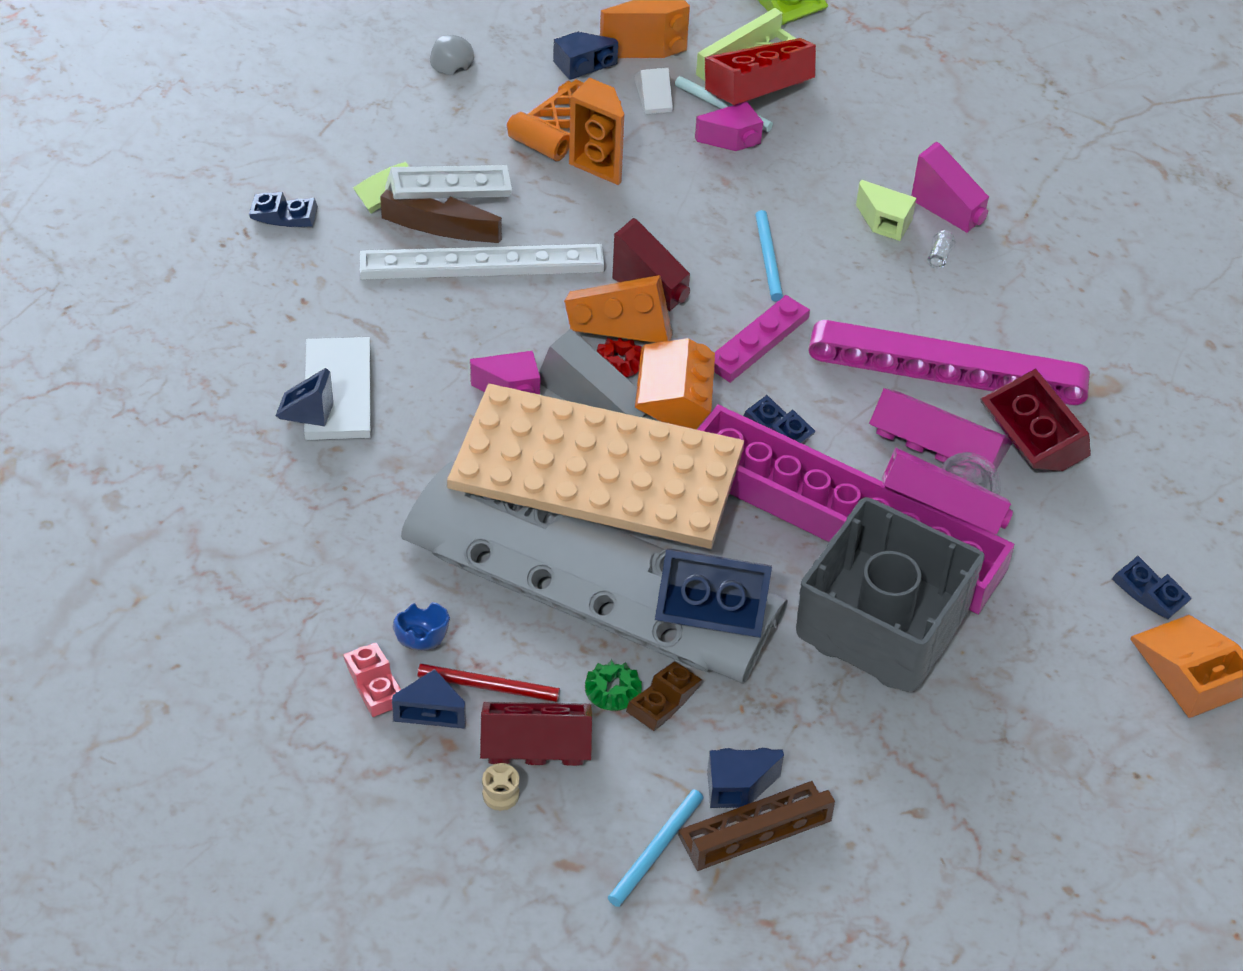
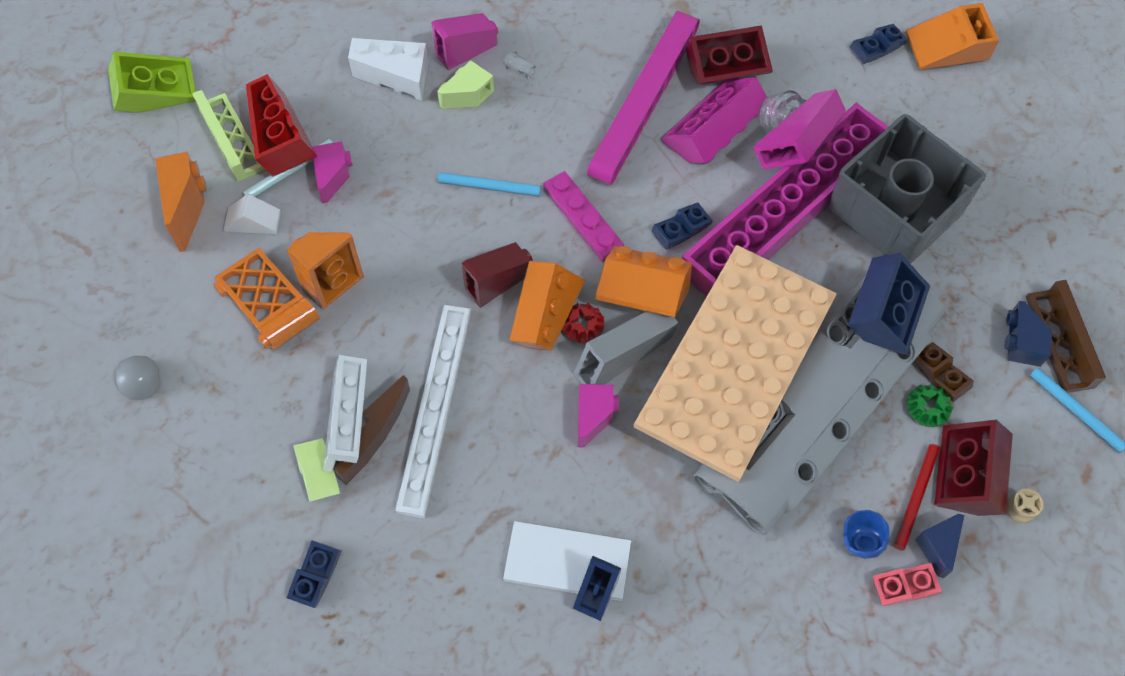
camera: 75 degrees left, 15 degrees up
(584, 53) = (184, 262): dark blue slope -> none
(888, 146) = (391, 64): none -> white wedge

